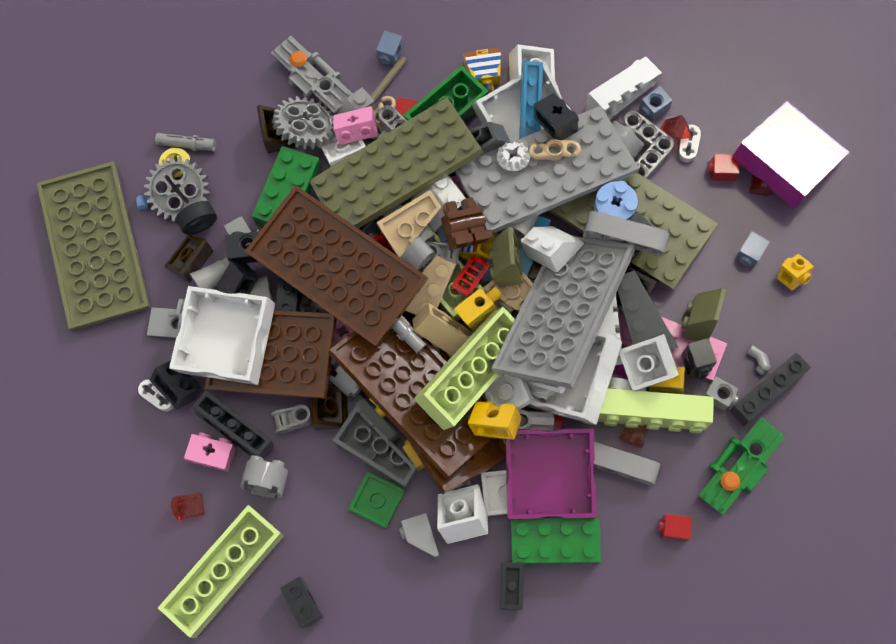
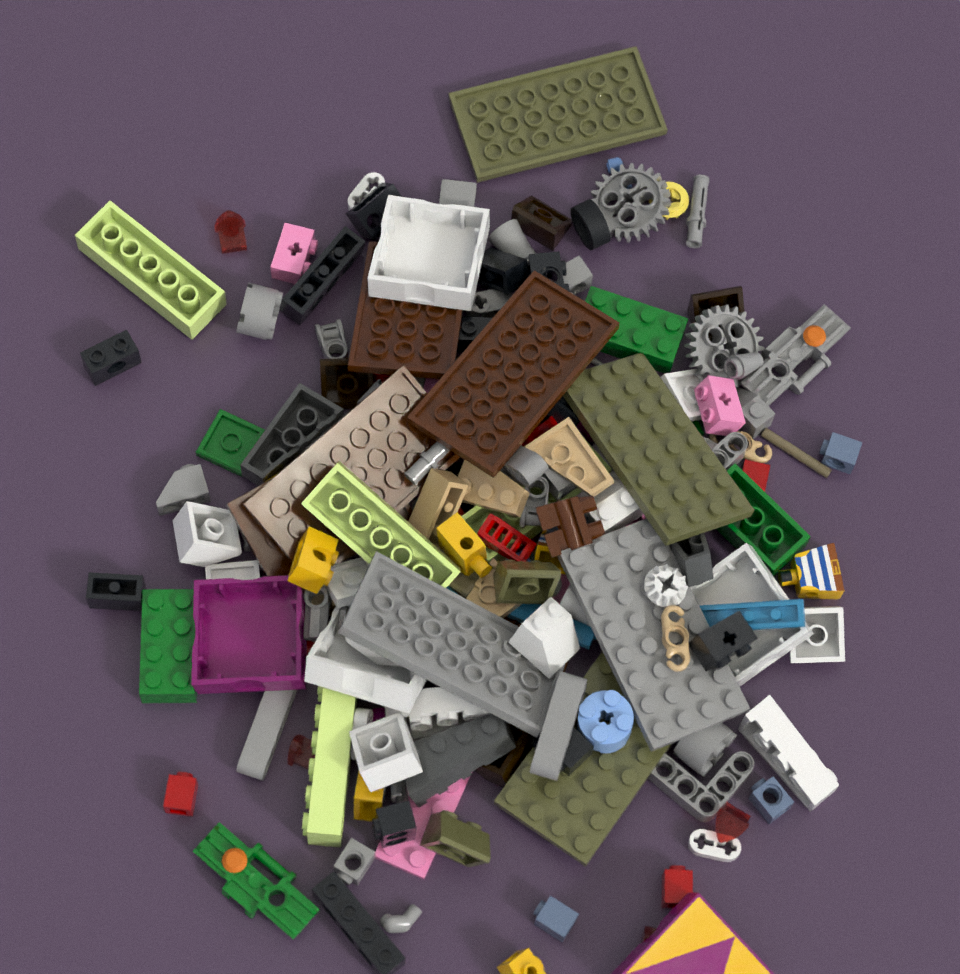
camera: 80 degrees right, 5 degrees down
(324, 110) = (742, 364): none -> light grey cone

